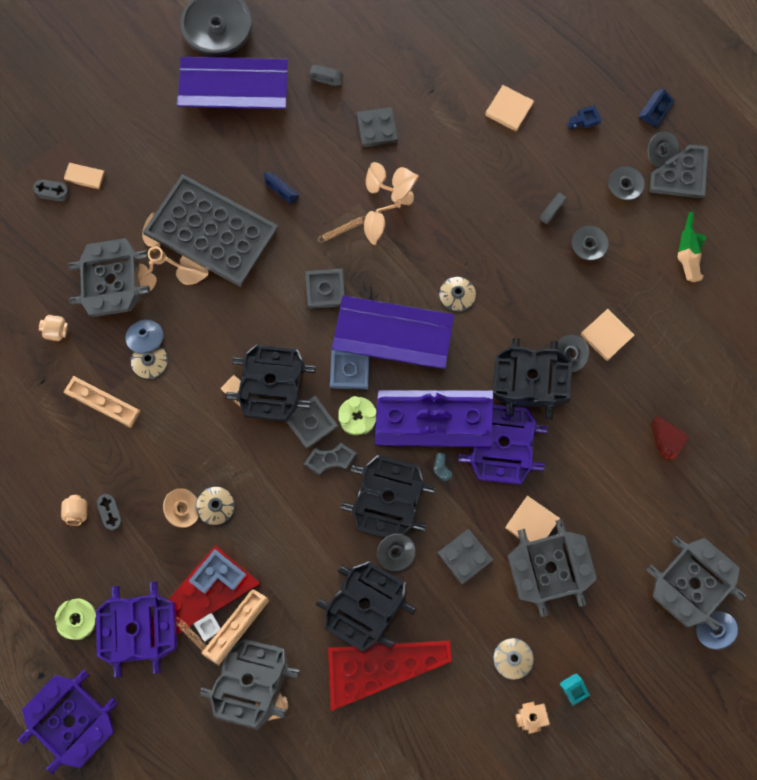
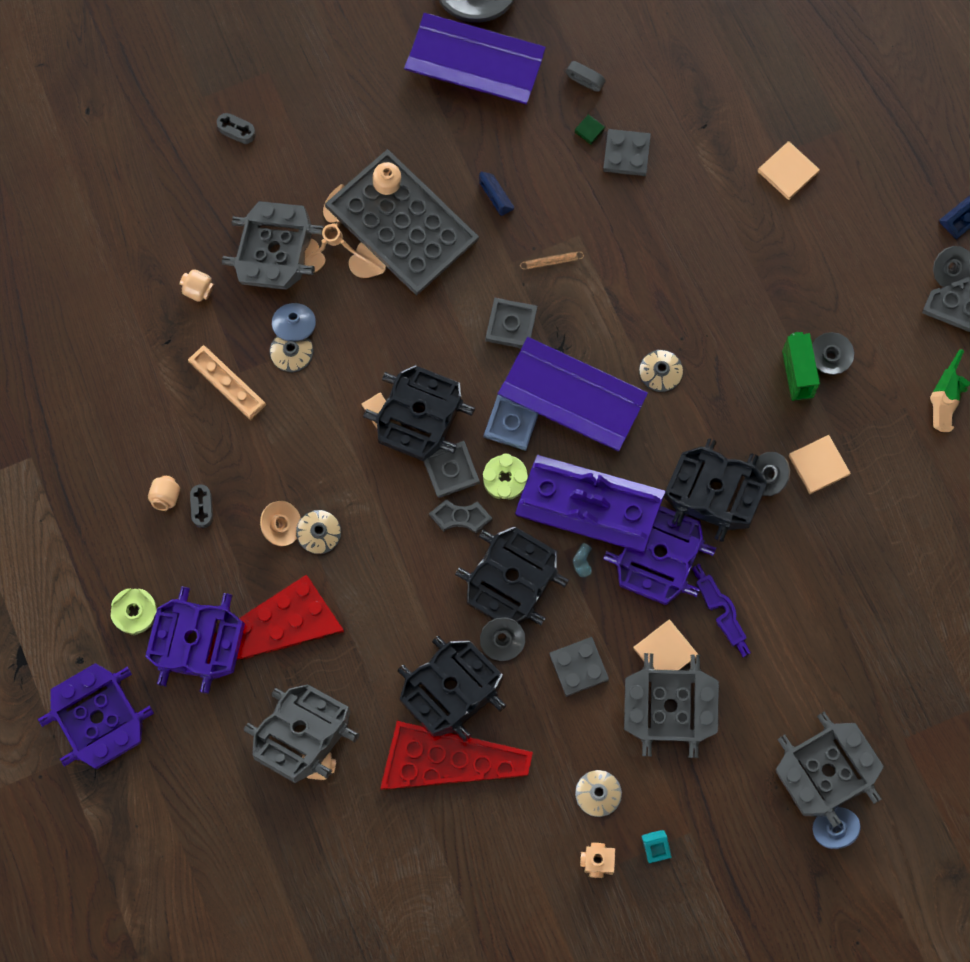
camera: 20 degrees right, 0 degrees up
(84, 176) = (277, 121): light nougat tile -> none
(188, 197) = (386, 178): none -> light nougat head
(196, 644) = (257, 673): light nougat piece -> none
(207, 627) = (273, 660): white plate -> none
(215, 568) = (299, 598): sand blue plate -> none
(235, 627) = (302, 668): light nougat tile -> none
(341, 116) = (589, 129): none -> dark green tile
(402, 181) = (629, 239): light nougat plant -> none
(553, 208) = (802, 301): dark grey beam -> none
(569, 259) = (800, 366): none -> green brick
(574, 484) = (727, 621): none -> dark purple piece
(587, 117) = (876, 205): dark blue plate -> none
(629, 177) = (897, 286): dark grey dish -> none
(668, 437) = (851, 600): clear red slope -> none

